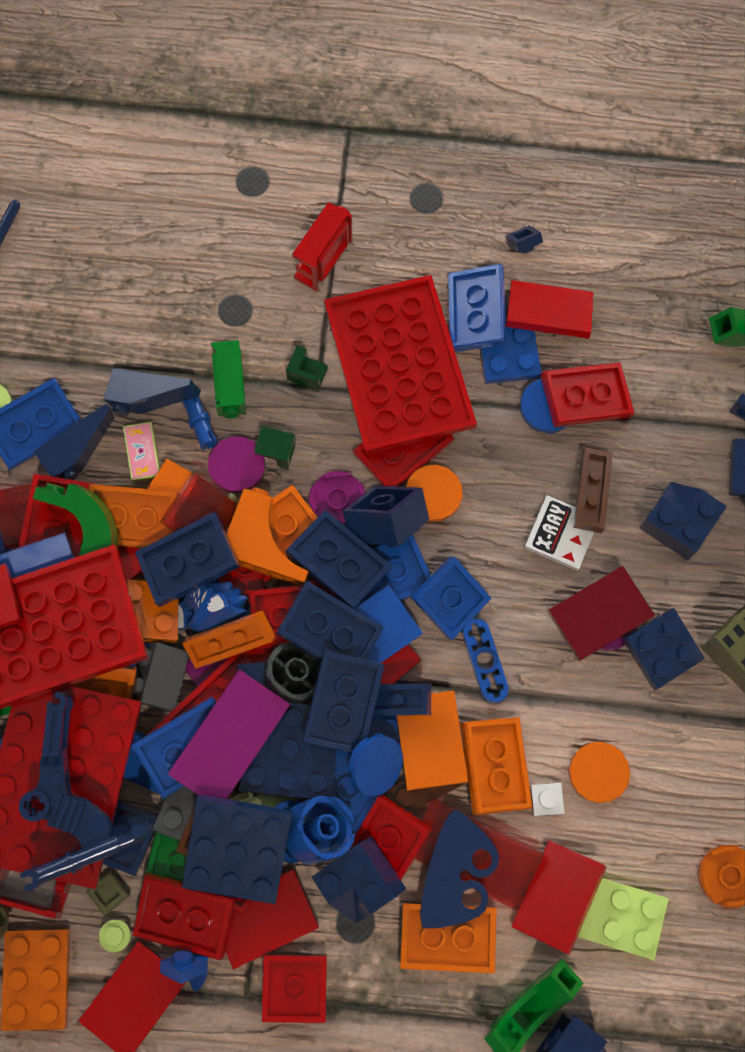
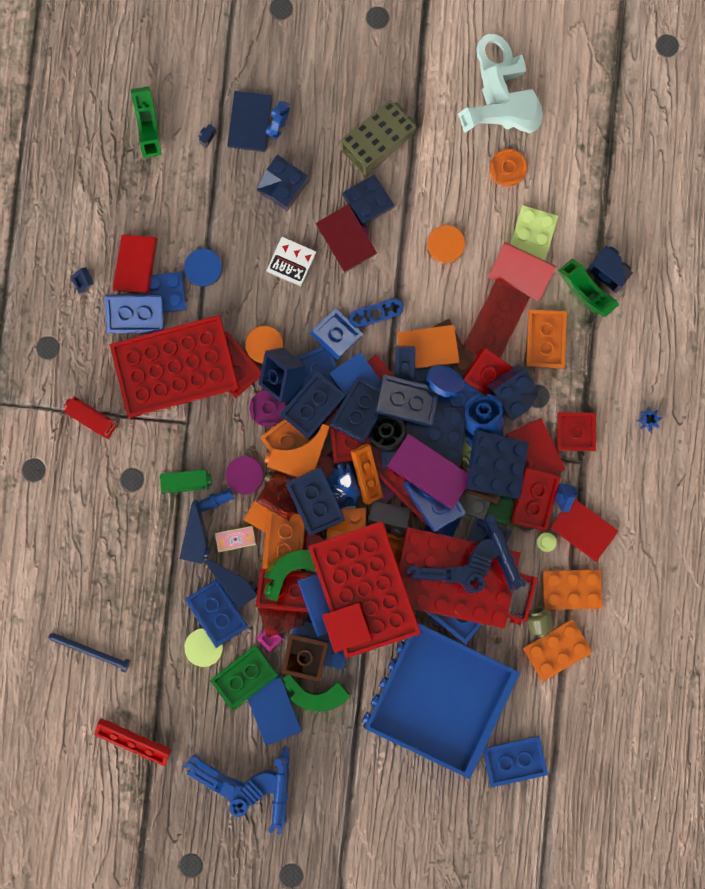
camera: 85 degrees left, 10 degrees up
(108, 894) = (522, 545): olive tile -> none
(276, 445) = (233, 448): dark green panel -> none
(305, 370) = (178, 429): dark green panel -> none
(451, 855) = (516, 341): dark blue piece -> none
(496, 766) = (442, 307): orange tile -> none
(547, 799) = (462, 277): white plate -> none
(587, 394) = (196, 241): red tile -> none
(593, 490) = (264, 240): reddish brown plate -> none

